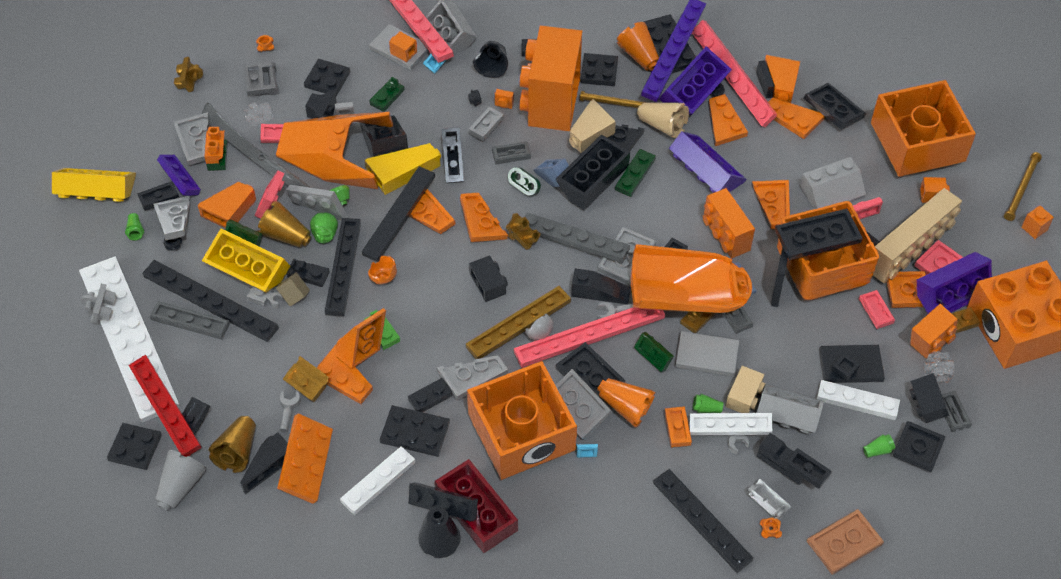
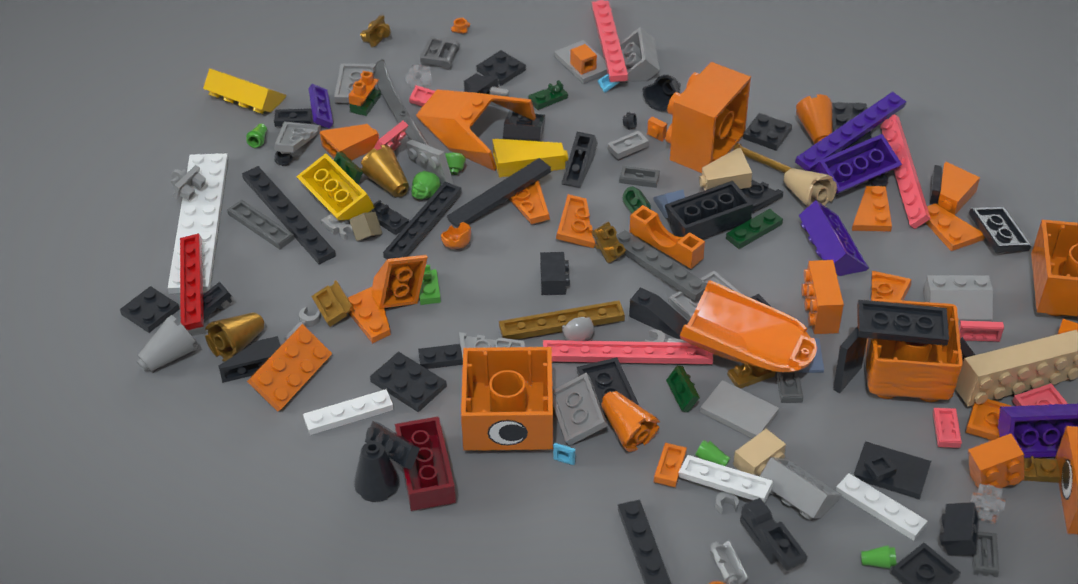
camera: 25 degrees right, 10 degrees down
(549, 204) = (648, 227): none -> orange arch

